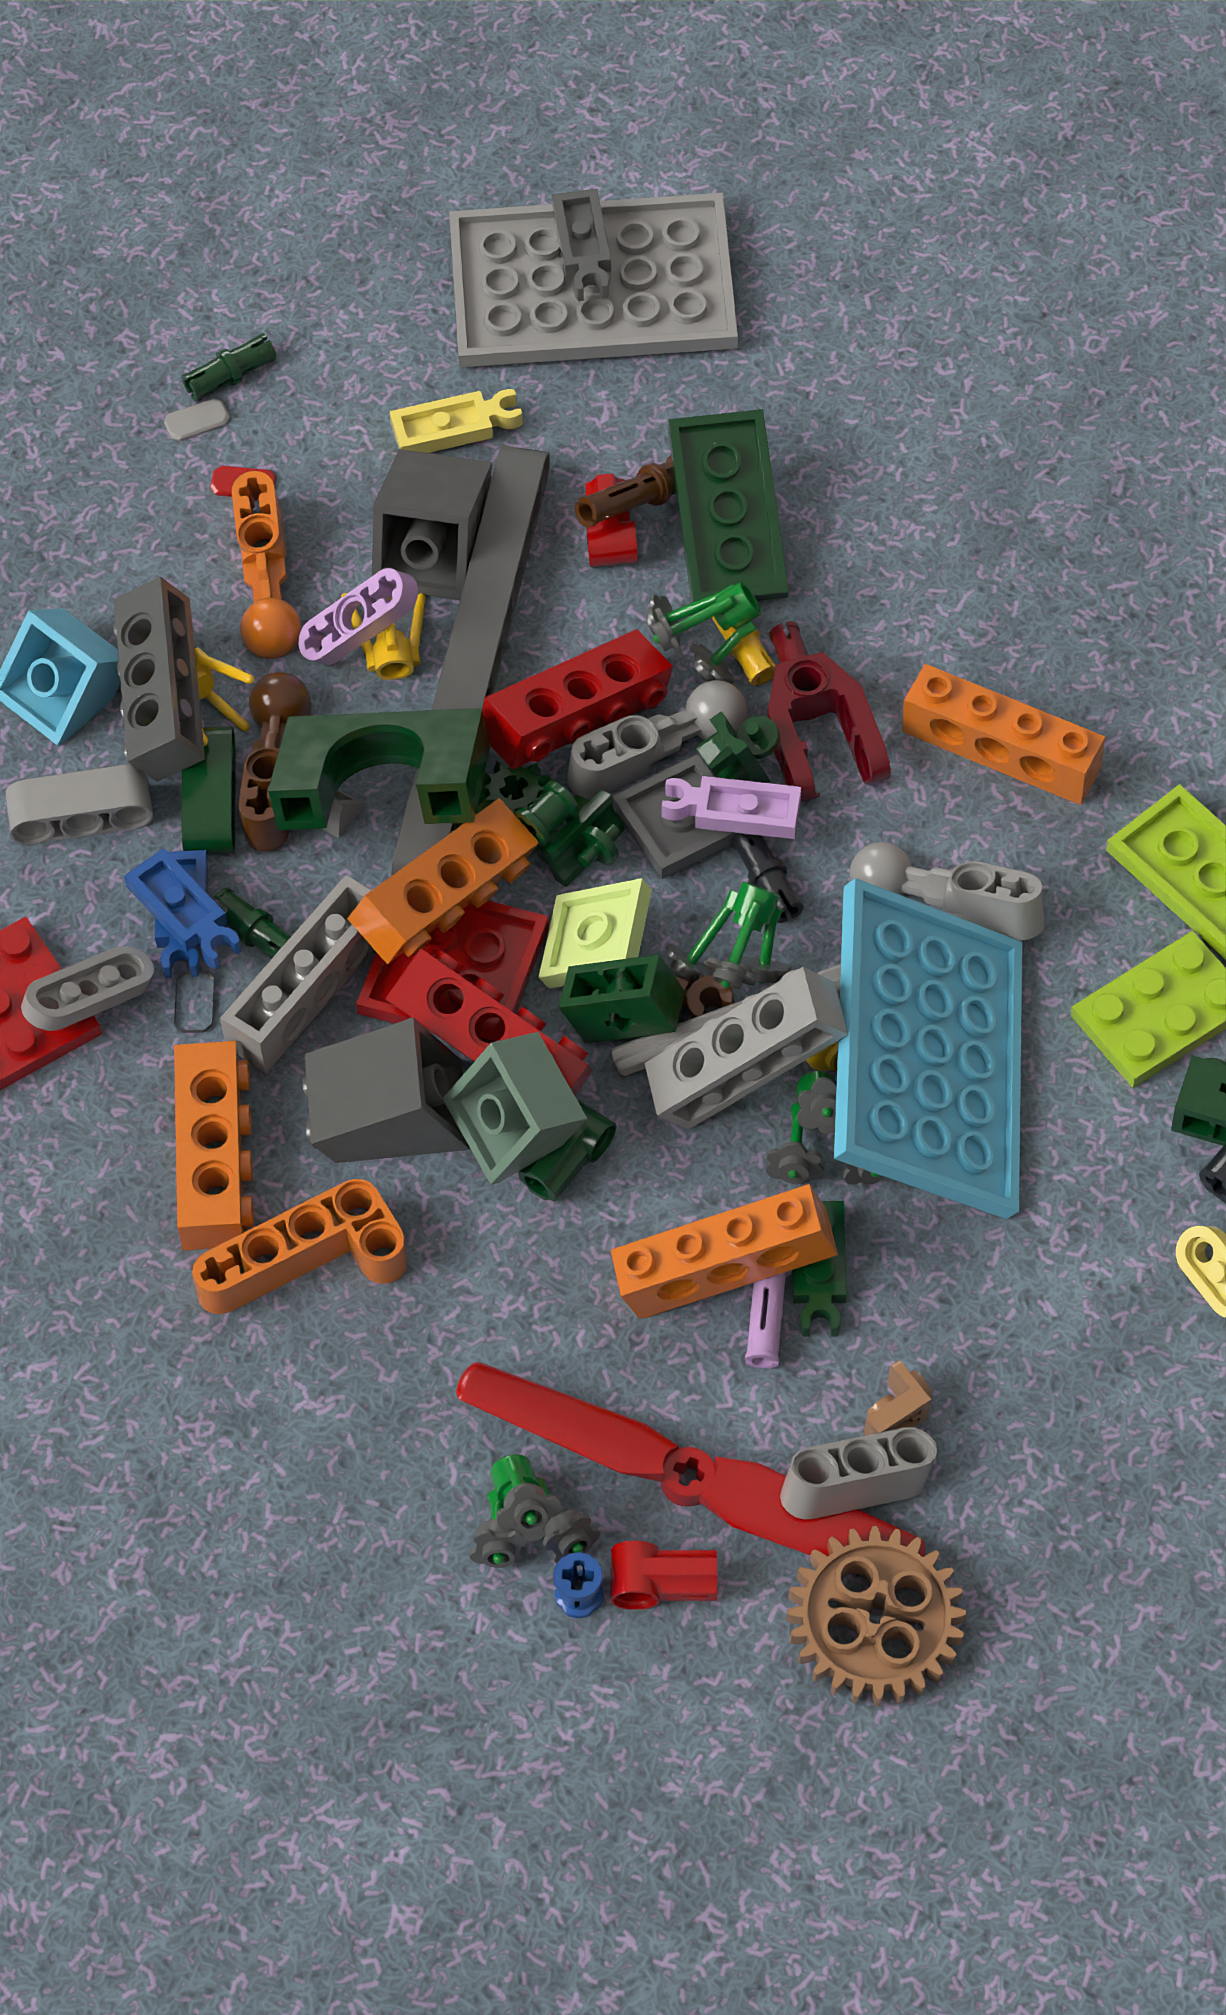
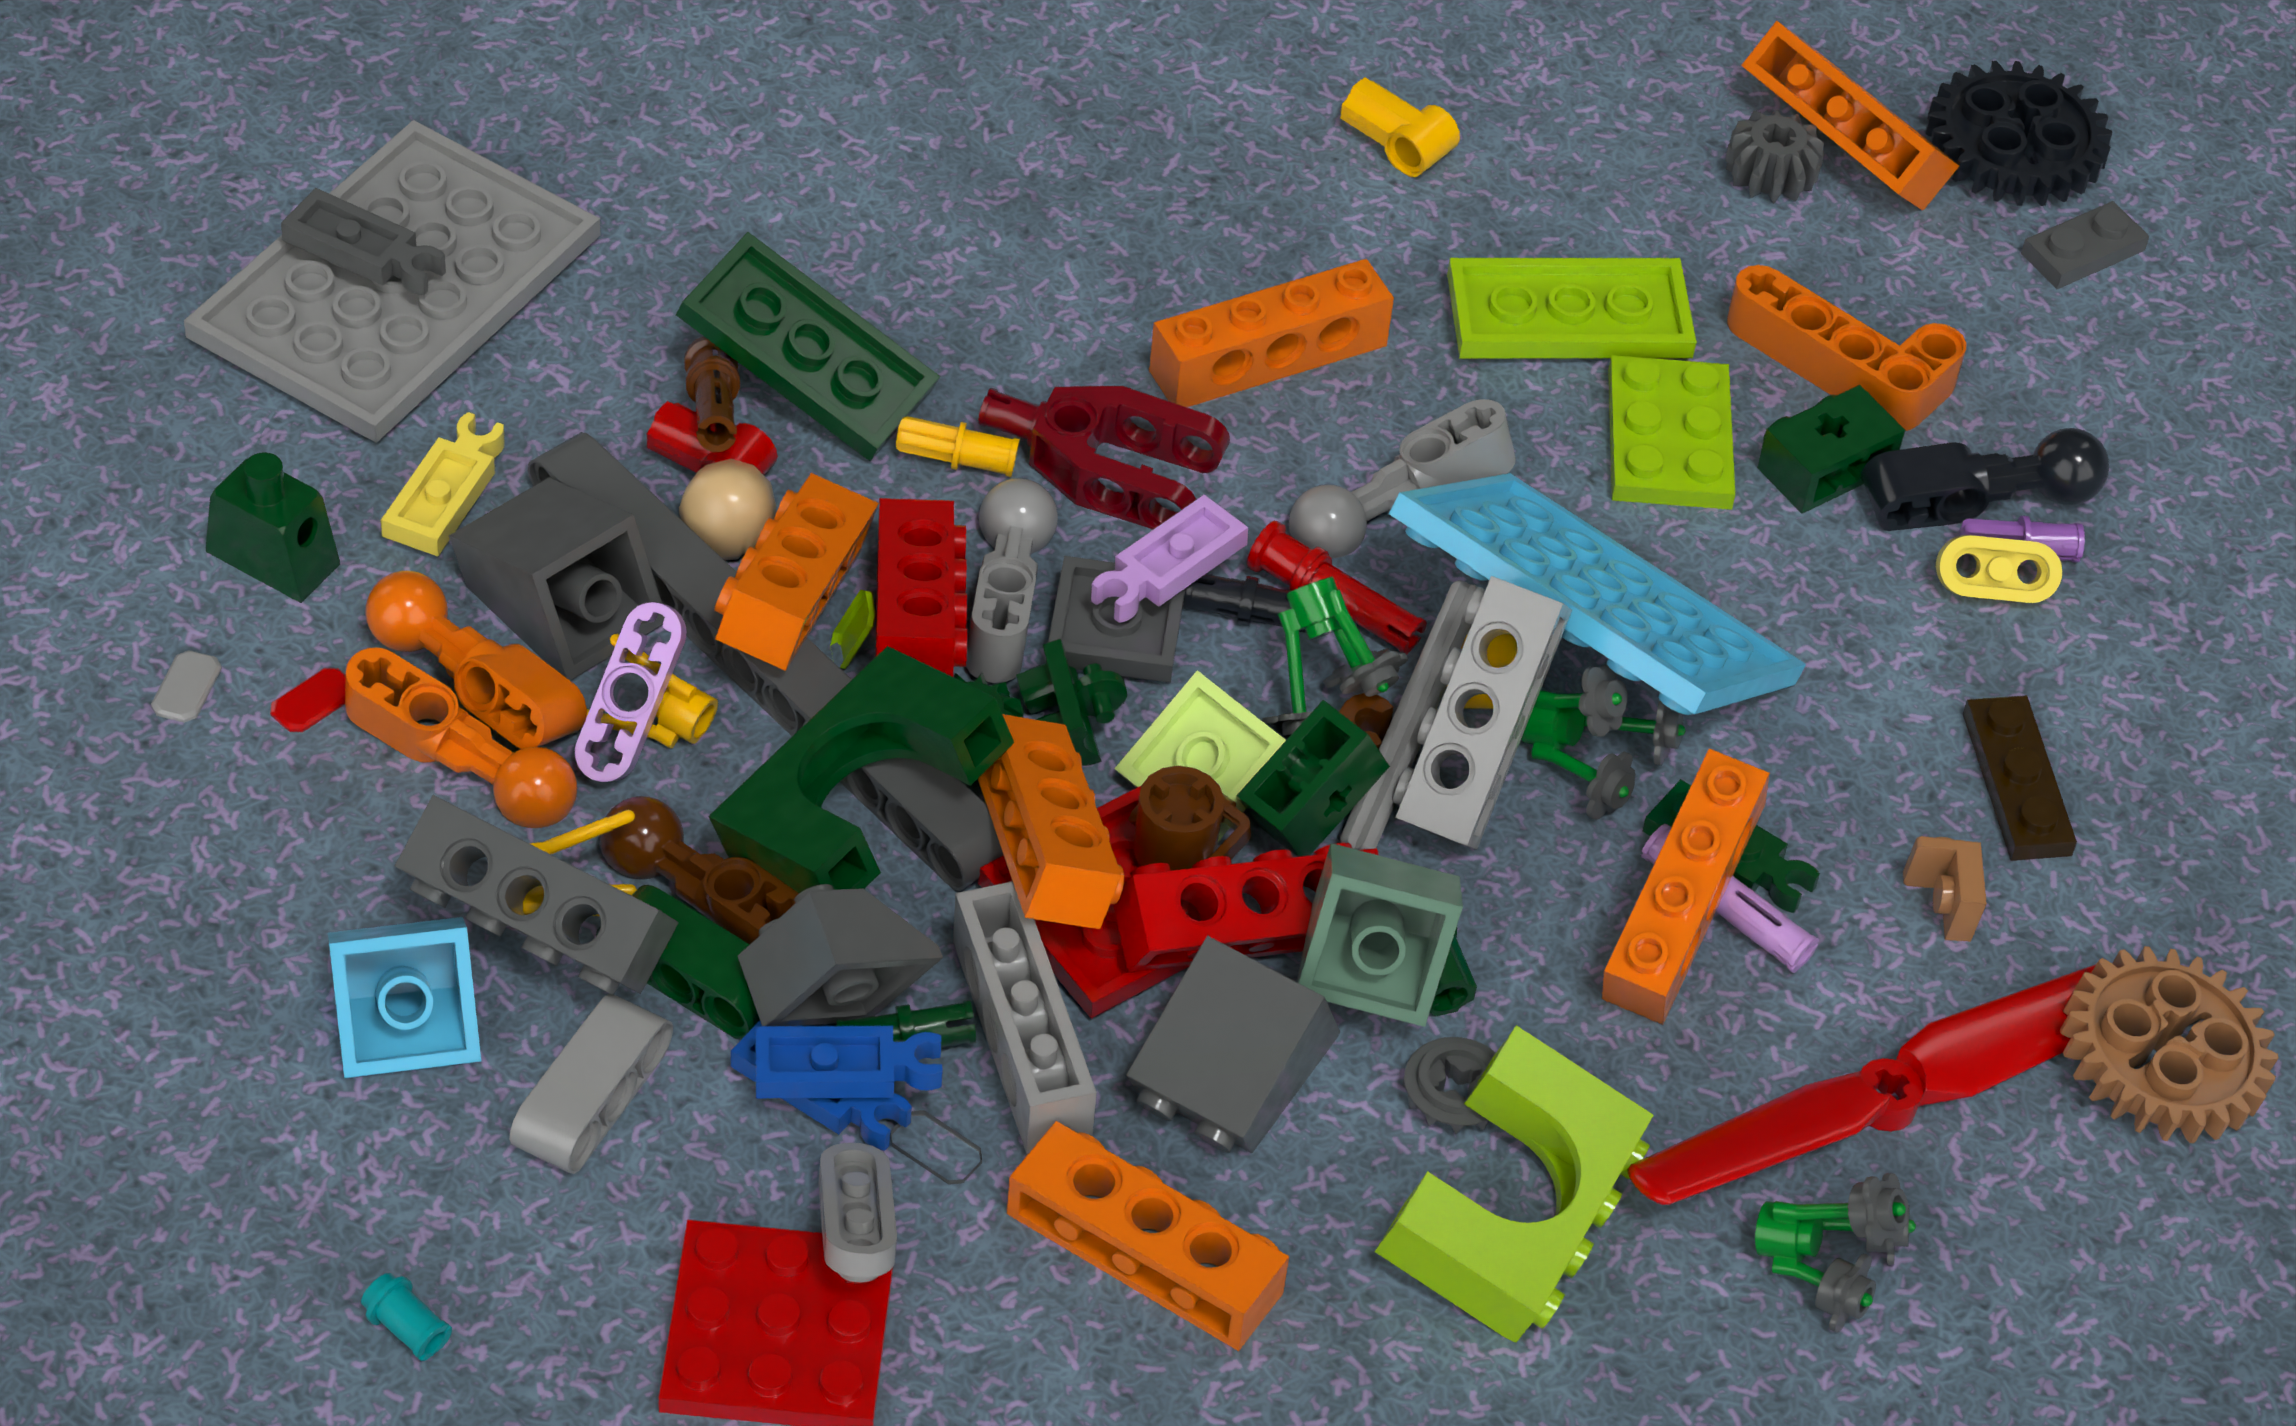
camera: 60 degrees left, 10 degrees down
(229, 367) = (158, 613): dark green pin -> none
(235, 848) = (833, 959): none -> dark grey slope
(298, 1255) = (1375, 1179): orange beam -> none
(322, 547) = (497, 684): none -> orange beam
(326, 352) = (272, 527): none -> dark green torso
(350, 1354) = (1510, 1268): none -> lime arch
(470, 1215) = (1426, 1078): none -> dark grey gear
(510, 642) = (793, 570): none -> orange brick
(517, 954) = (1182, 819): none -> reddish brown piece
(548, 812) = (1039, 688): dark green bush -> none
(564, 564) = (728, 506): none -> tan hair
(592, 1590) = (1952, 1247): blue bush -> none
(646, 1575) = (1985, 1189): red piece -> none
(730, 607) = (947, 408): green plant -> none
(736, 754) = (1104, 513): dark green hips -> none
(821, 893) = (1301, 565): none -> red pin
(858, 1473) = (2012, 950): light grey beam -> none
(1045, 1396) = (2019, 778): none -> dark brown plate

